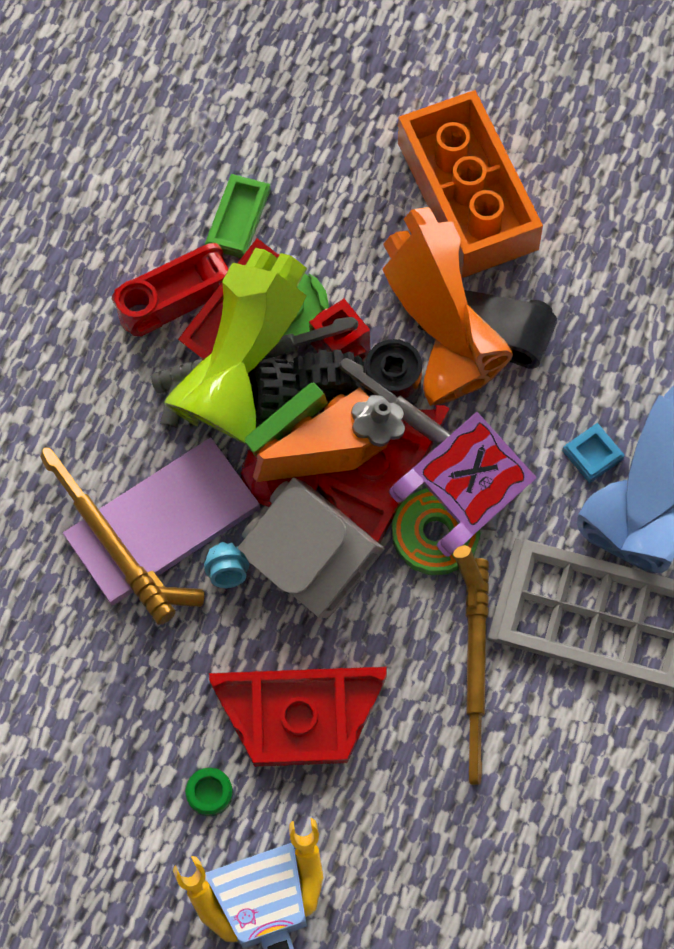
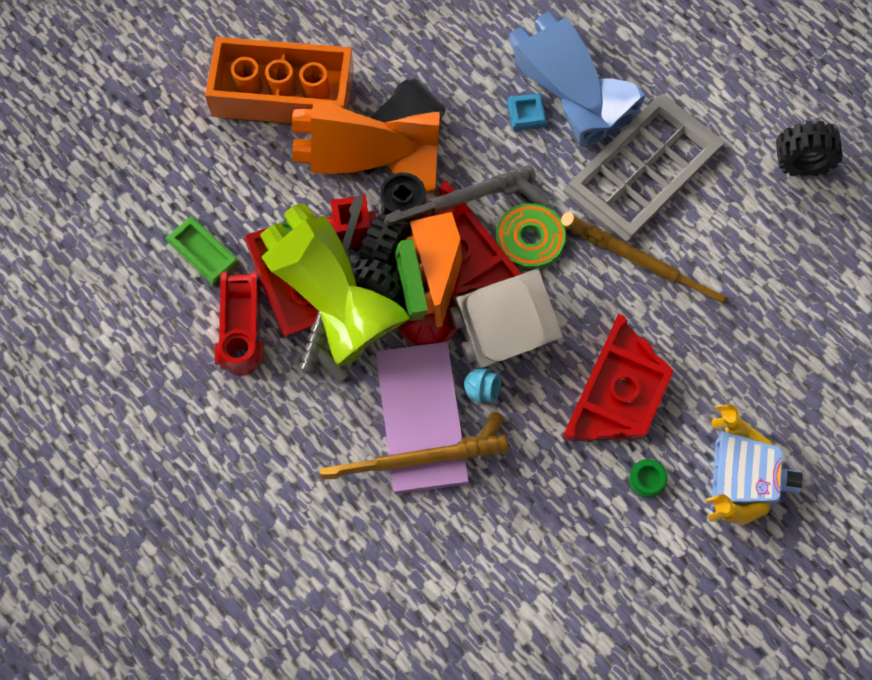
camera: 65 degrees left, 0 degrees up
(378, 420) = (444, 220): dark grey plant -> none
(470, 476) = (510, 189): flag -> none

